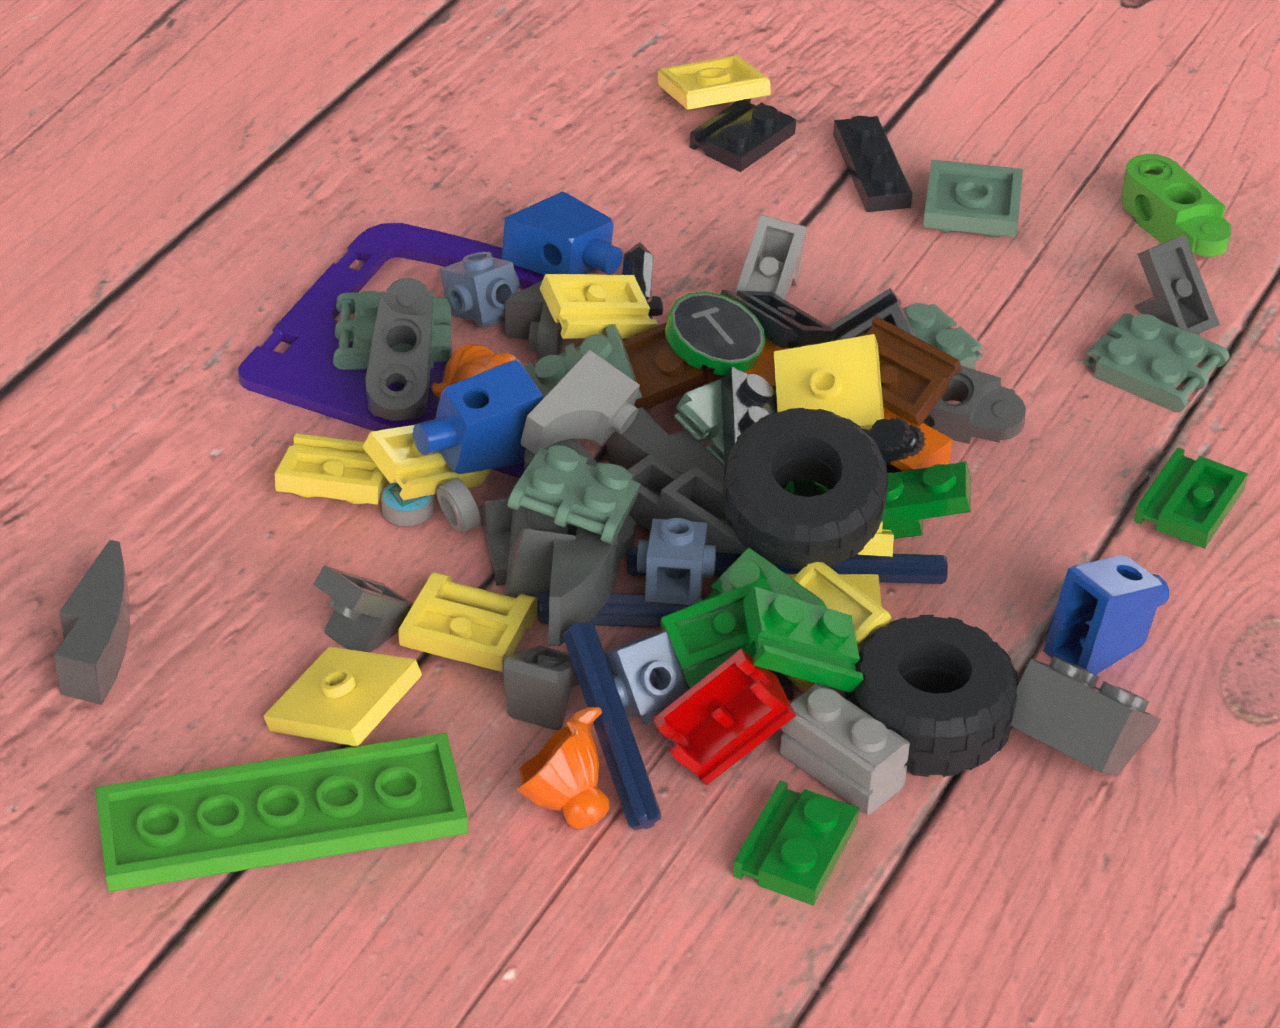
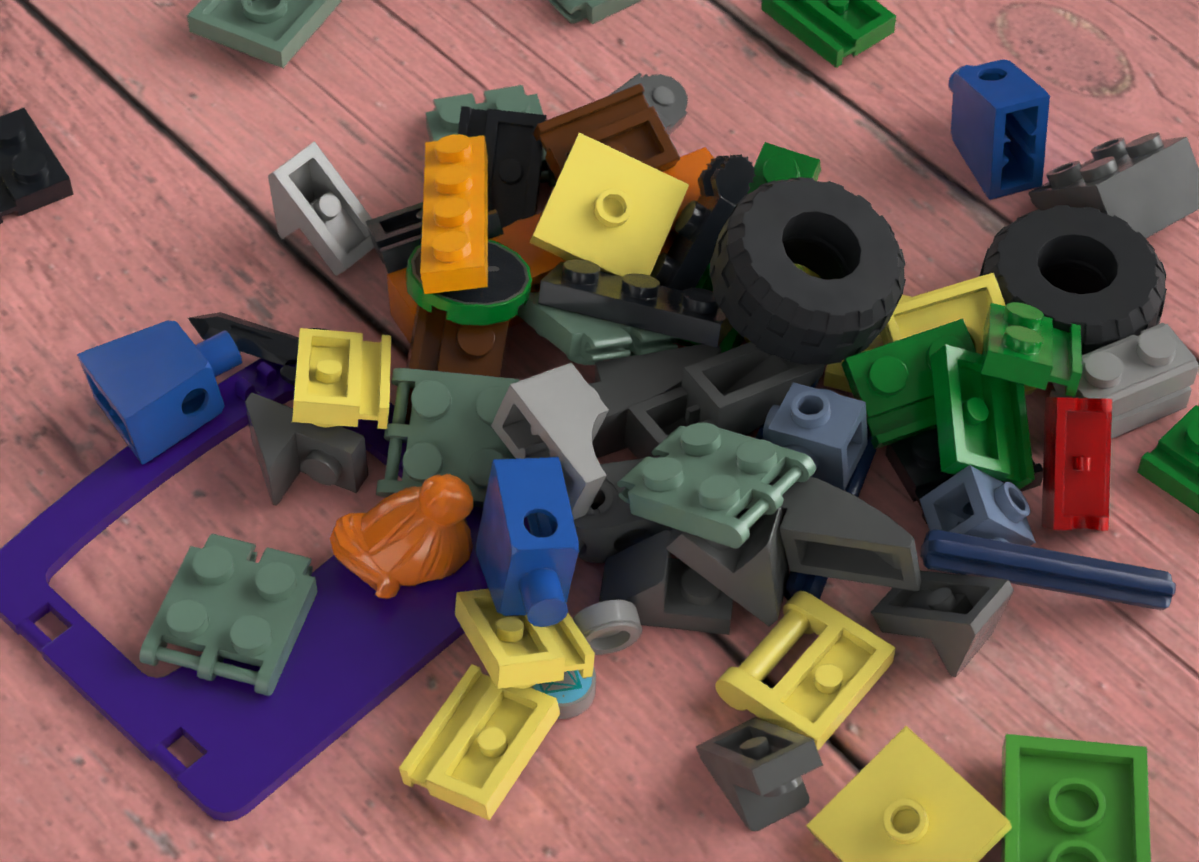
camera: 70 degrees left, 10 degrees up
(401, 317) = (373, 619): dark grey piece -> none
(479, 287) = (216, 491): sand blue brick -> none
(566, 773) = (1087, 633): orange hair -> none
(767, 304) = (455, 215): none -> light orange plate
(872, 164) = (139, 72): black plate -> none

